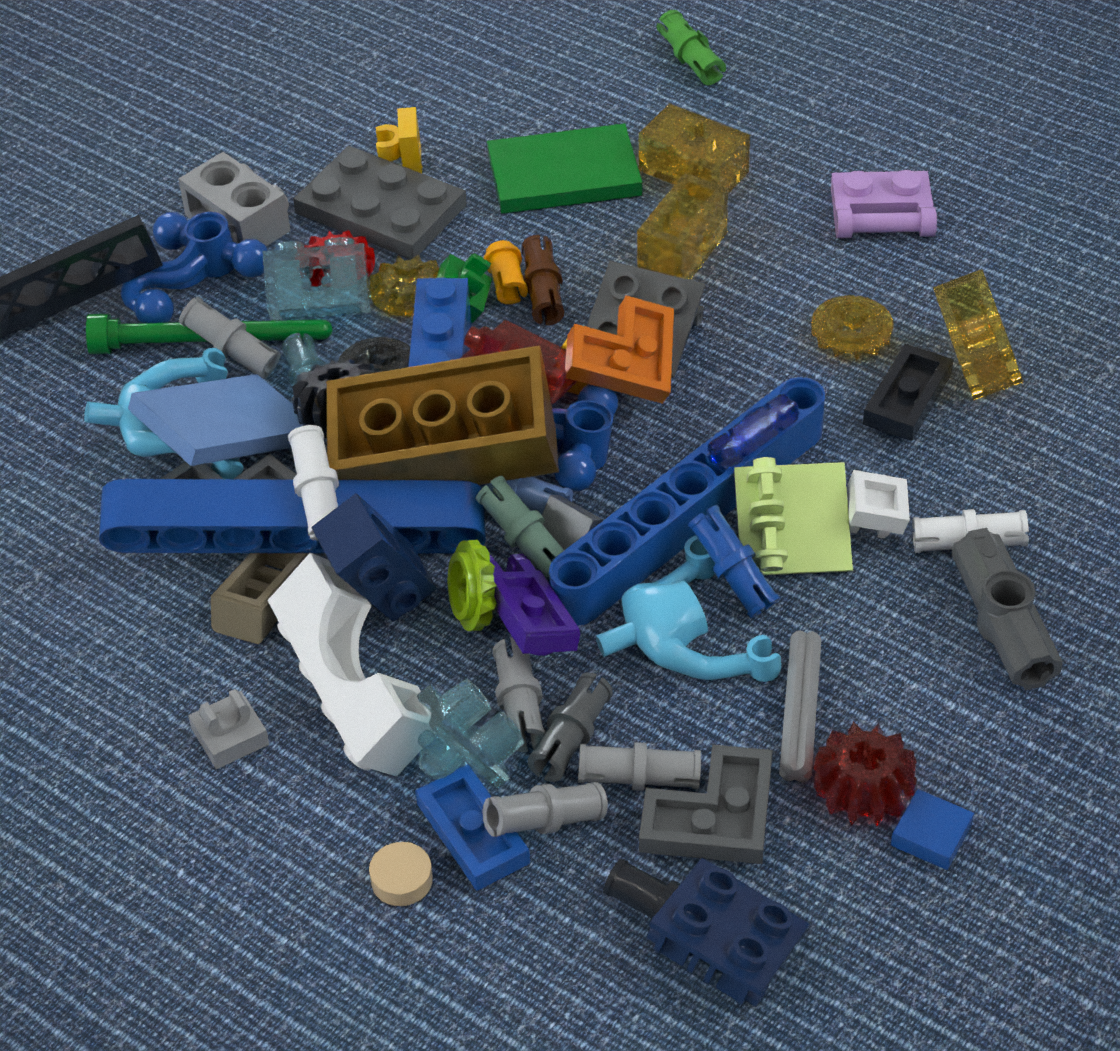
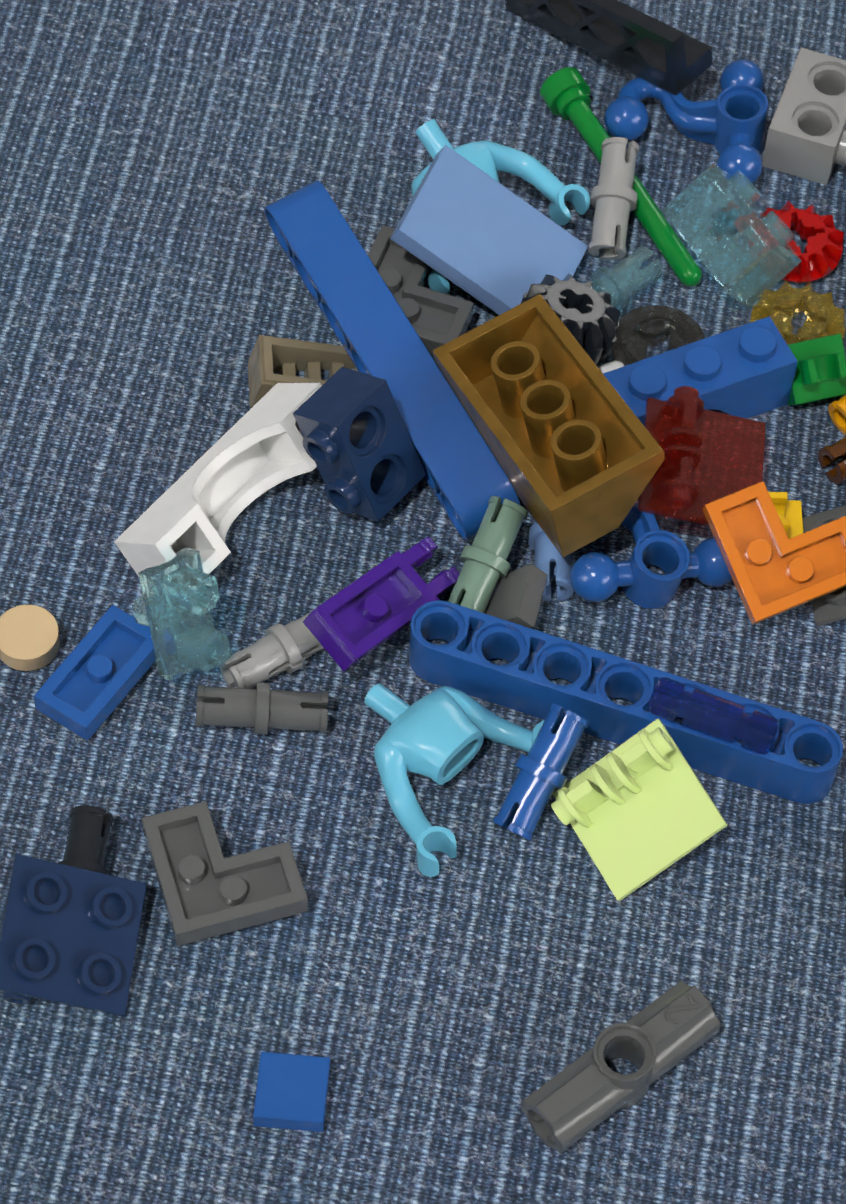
camera: 60 degrees right, 10 degrees up
(228, 729) = (129, 426): light grey tile -> none
(314, 477) = (413, 341): white pin -> none
(471, 585) = (381, 540): lime gear -> none
(544, 808) = (137, 721): light grey pin -> none
(639, 766) = (239, 787): light grey pin -> none
(800, 706) = (395, 910): light grey axle -> none
(865, 773) = (318, 1021): clear red gear -> none
(877, 503) = (701, 882): white tile -> none
(943, 532) = (728, 996): white pin -> none

